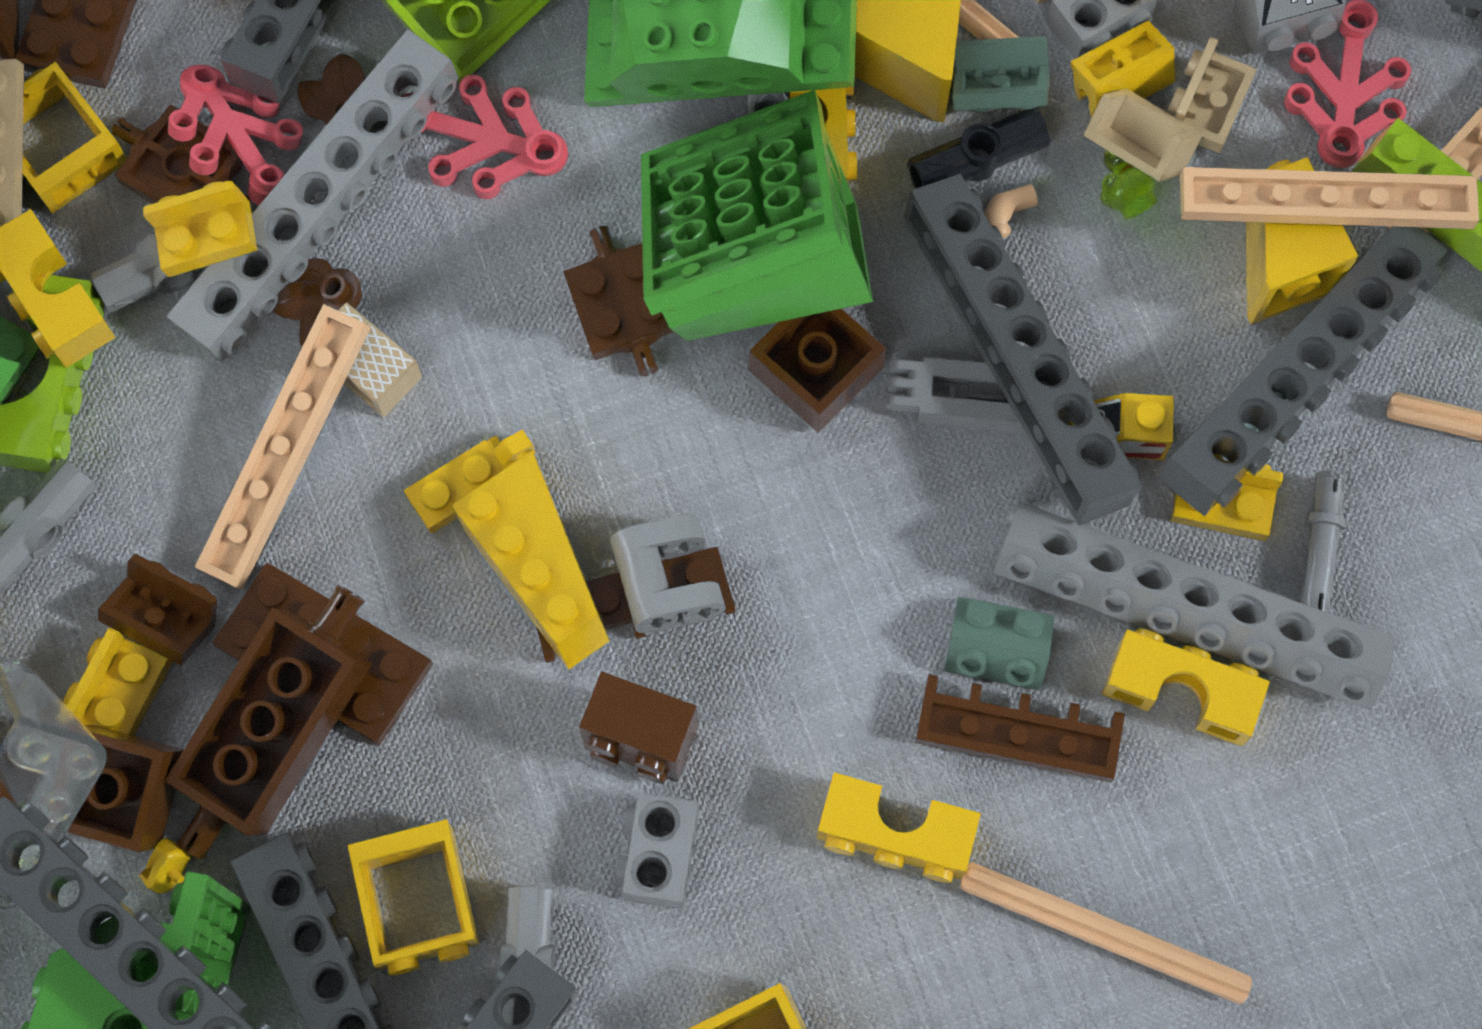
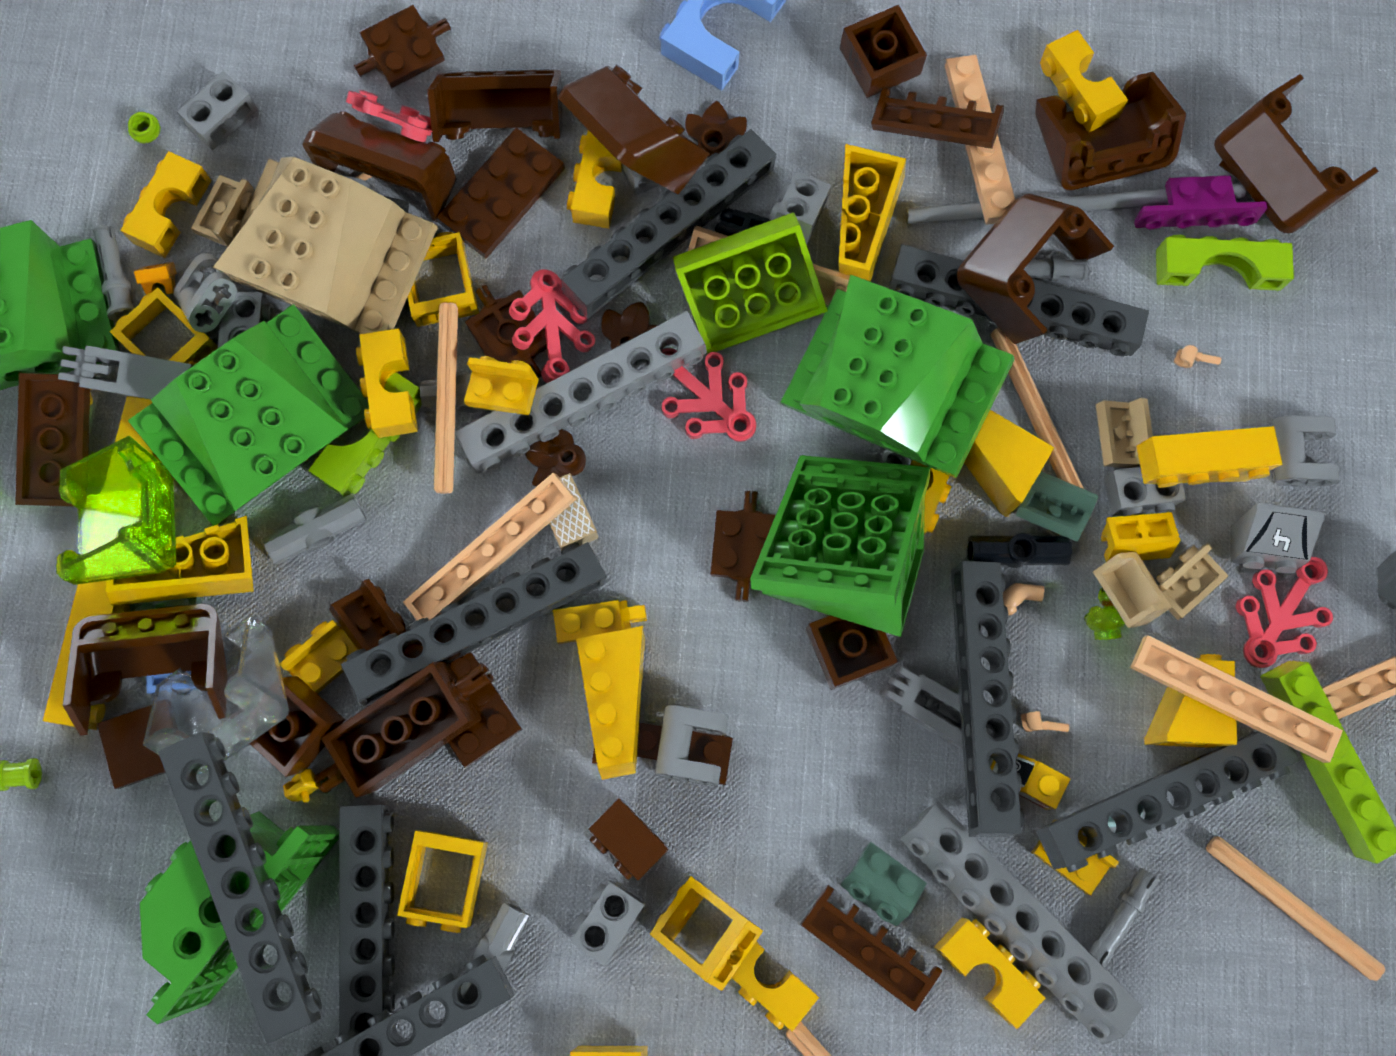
camera: 20 degrees right, 5 degrees up
(135, 278) = (446, 398): none -> light nougat axle
(305, 570) = (372, 686): none -> dark grey brick
(830, 823) = (728, 951): none -> yellow window
(1096, 357) = (1032, 722): none -> light nougat hand

